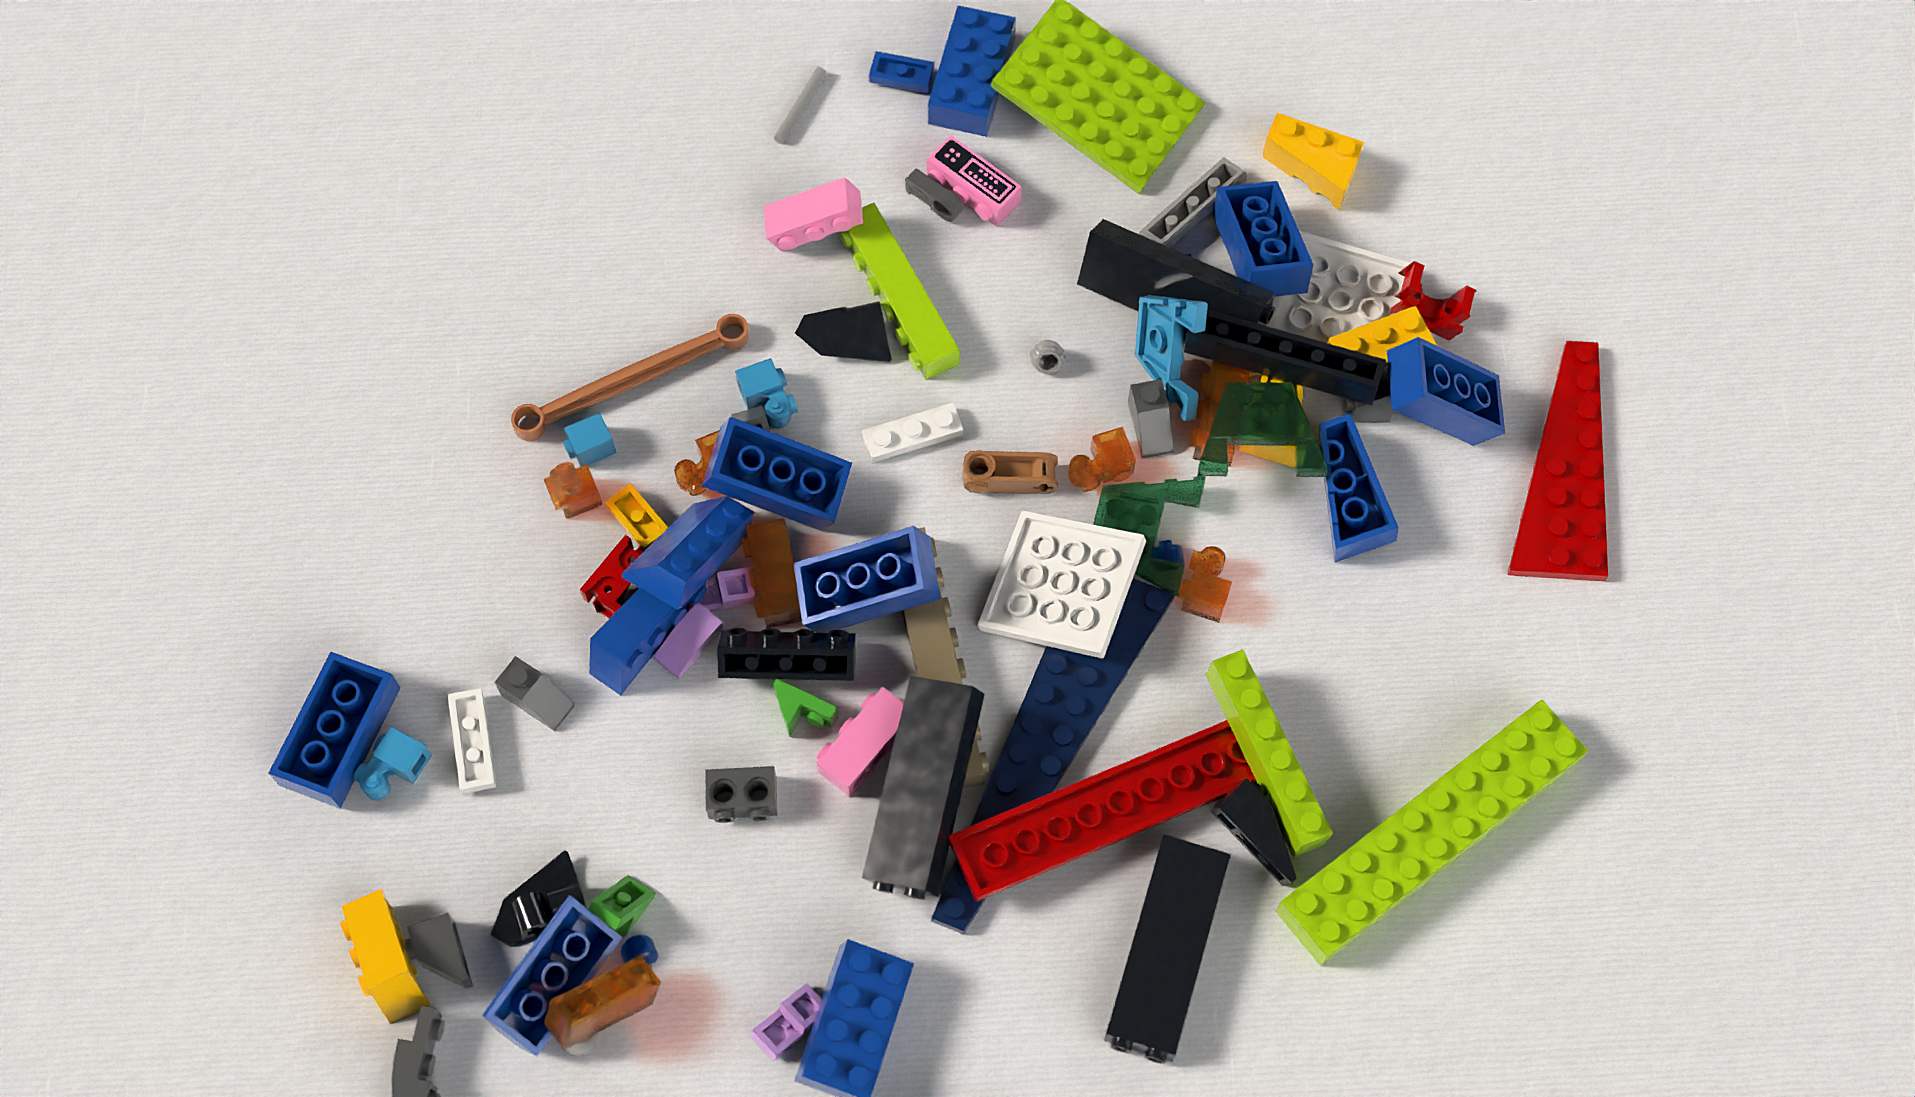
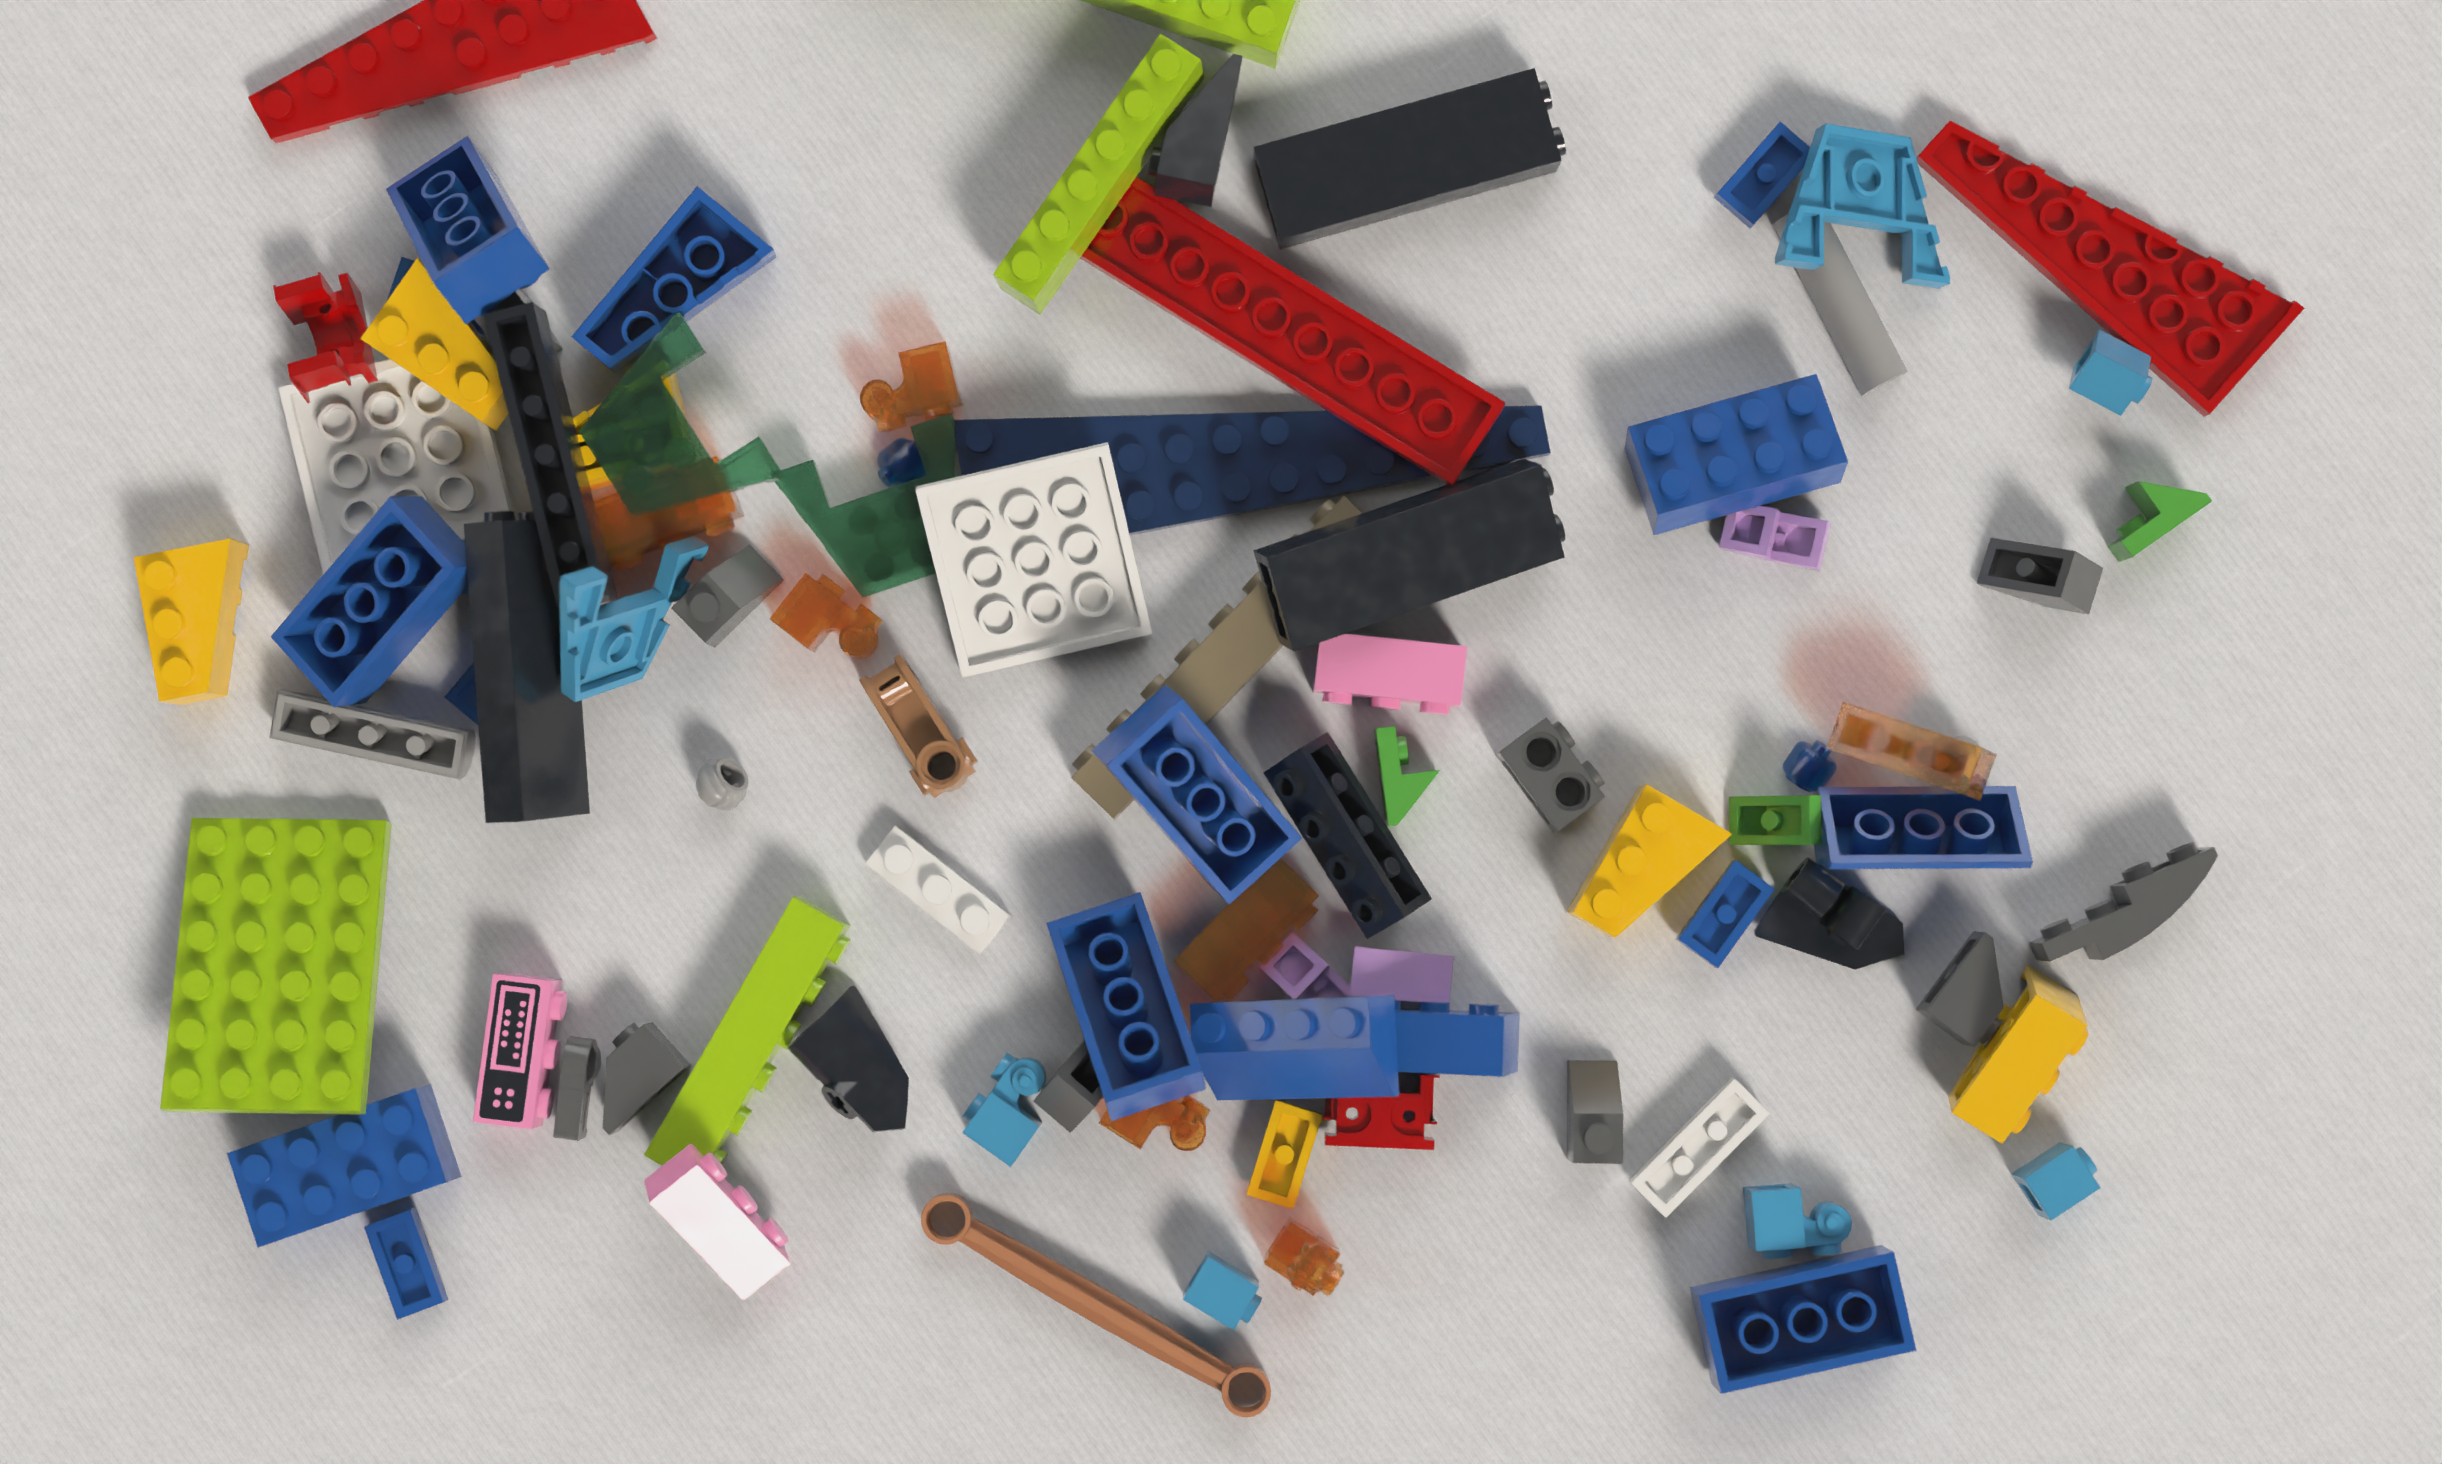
camera: 120 degrees left, 20 degrees up
(296, 930) = (2057, 1179): none -> dark azure brick
(590, 842) = (1725, 913): none -> blue plate
(654, 814) = (1643, 859): none -> yellow wedge
(800, 105) = (544, 1368): light grey bar -> none
(920, 229) = (638, 1073): none -> dark grey slope

